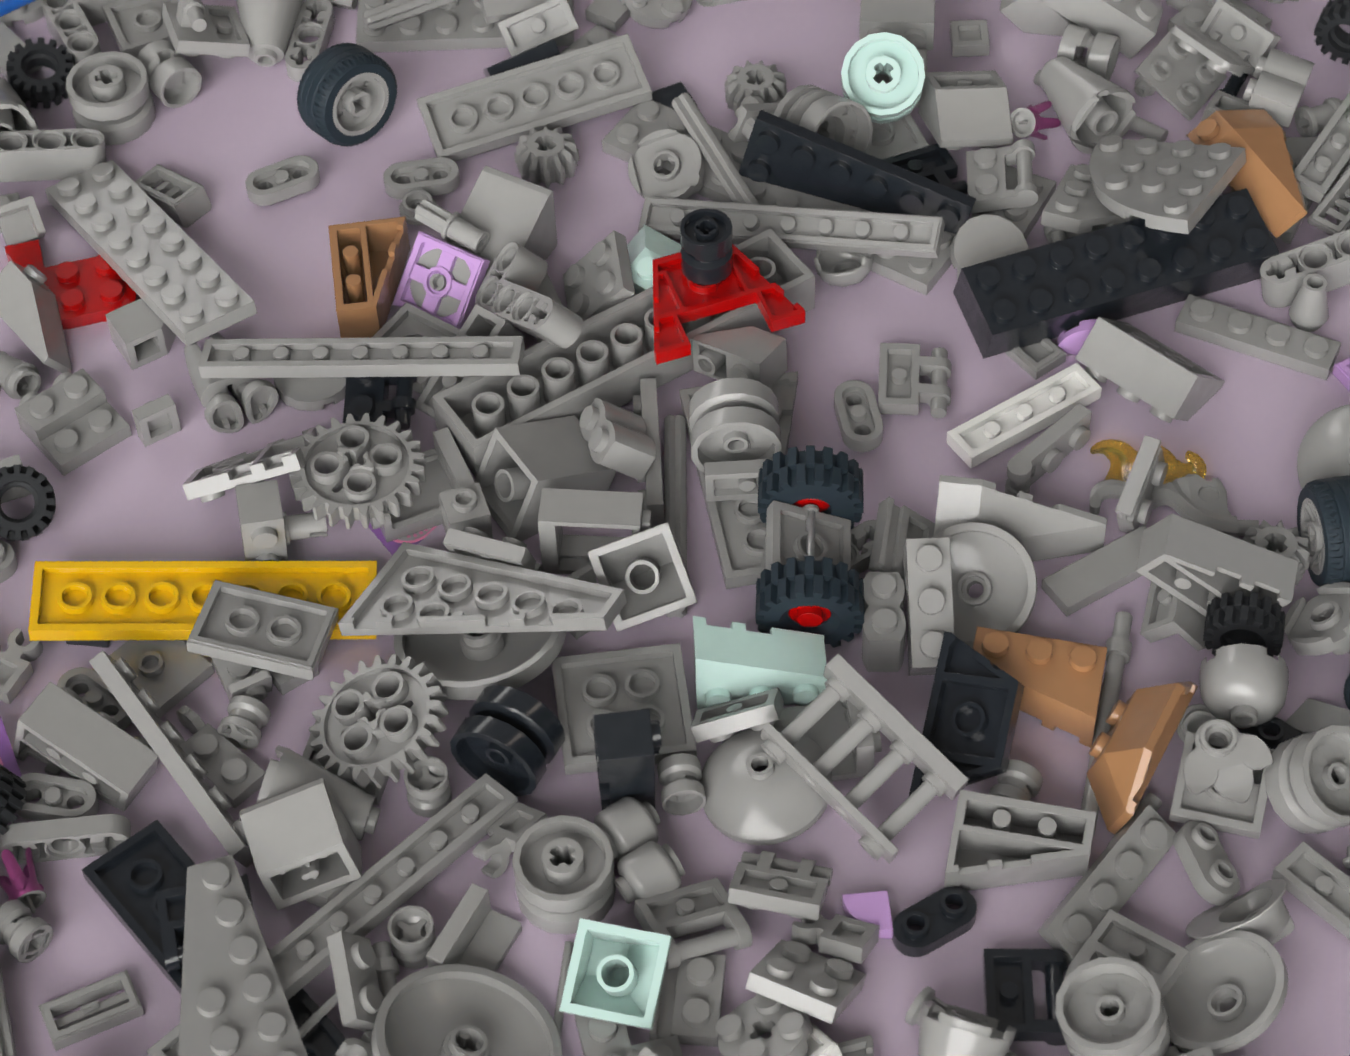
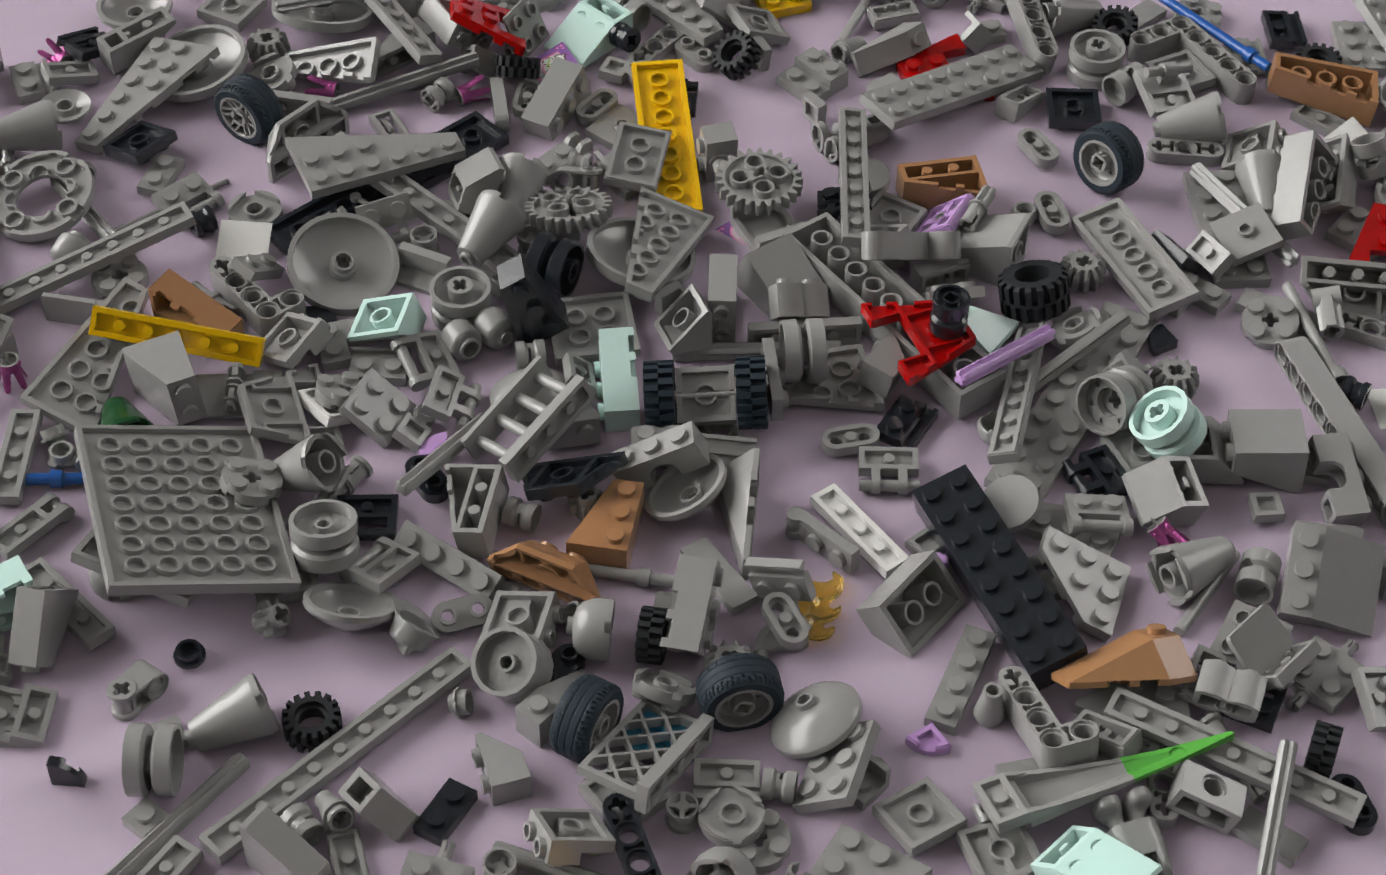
camera: 85 degrees right, 5 degrees down
(166, 742) = (559, 122): light grey plate -> none
(203, 137) = (1072, 108): none -> black plate
(245, 468) = (755, 133): light grey wing -> none
(286, 720) = (577, 176): none -> light grey piece
(436, 817) = (489, 227): none -> light grey cone
(465, 508) = (738, 240): light grey brick -> none
(477, 544) = (698, 253): light grey plate -> none
(587, 177) = (1034, 290): none -> black tyre
(750, 223) = (1004, 355): none -> lavender axle
(823, 359) = (906, 422): none -> black plate
(828, 169) = (1058, 424): black wing -> none
(907, 887) = (434, 461): none -> light grey axle
(1162, 180) = (1086, 591): light grey plate -> none
(1202, 488) = (785, 623): none -> light grey plate
(1228, 767) = (527, 607): light grey plate -> none

